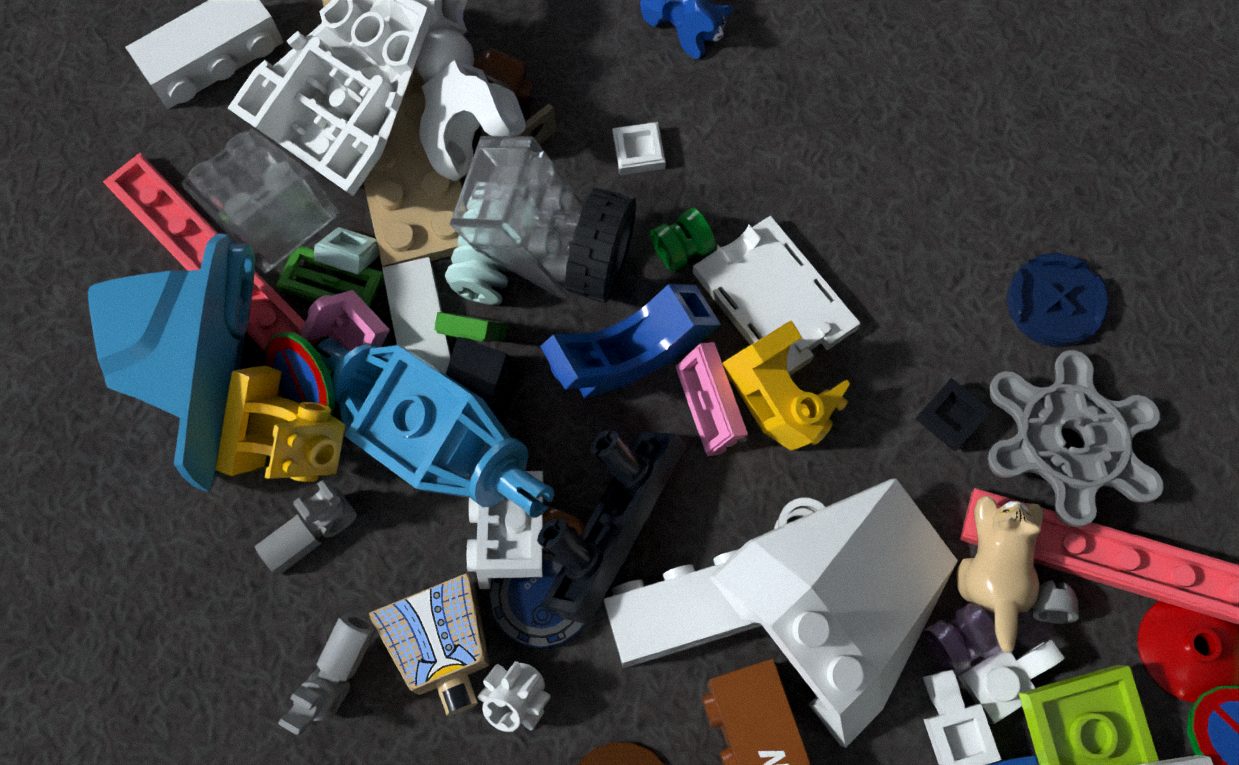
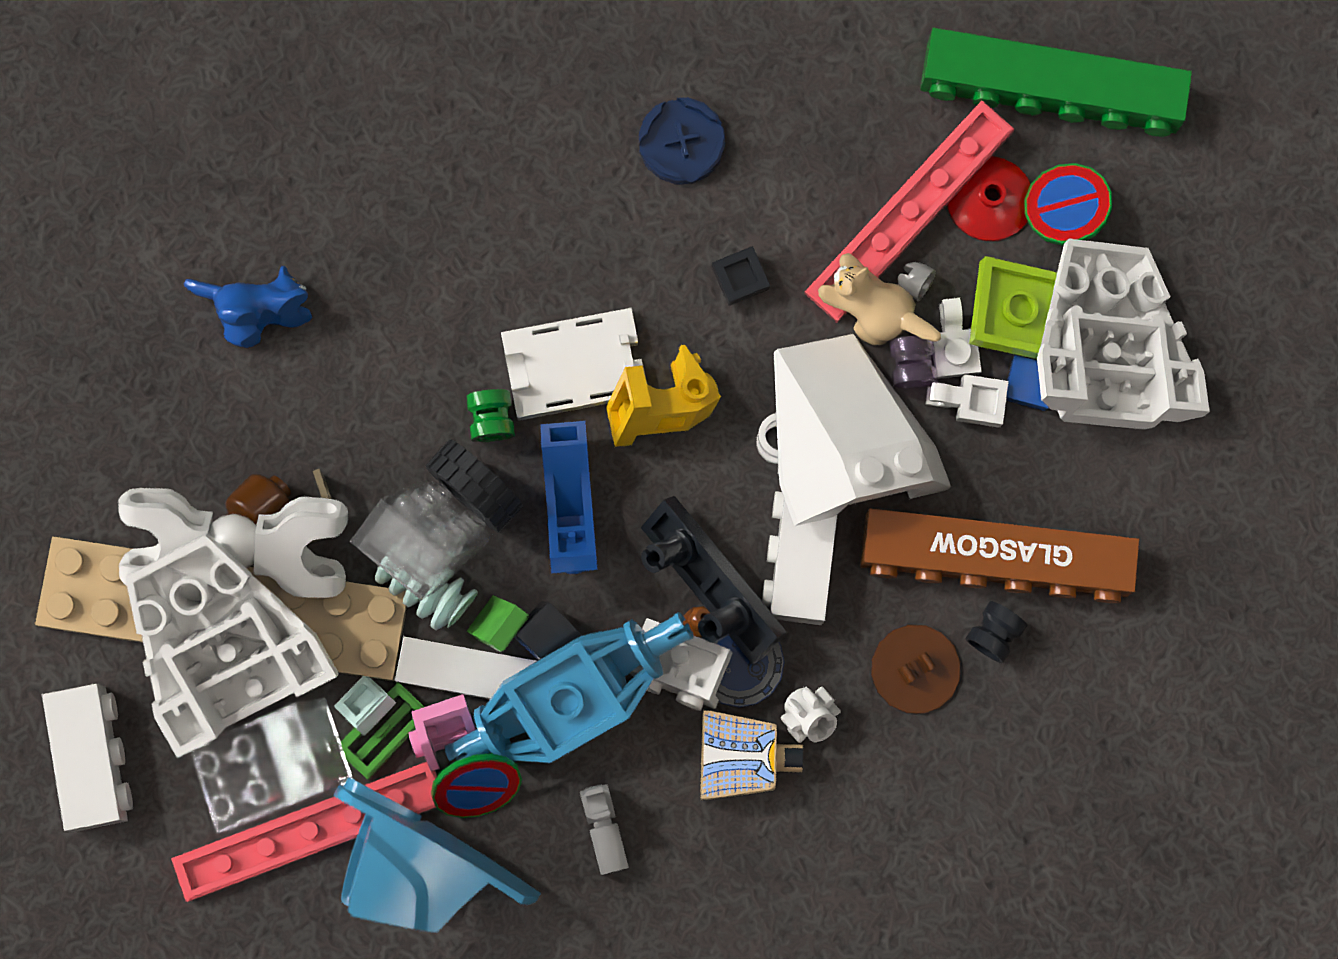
camera: 75 degrees left, 10 degrees up
(296, 435) = (504, 832): yellow tile -> none
(328, 685) = (729, 843): light grey bar -> none
(638, 148) = (379, 412): white tile -> none
(711, 399) = (642, 458): bright pink tile -> none
(1100, 422) = (801, 168): light grey plate -> none

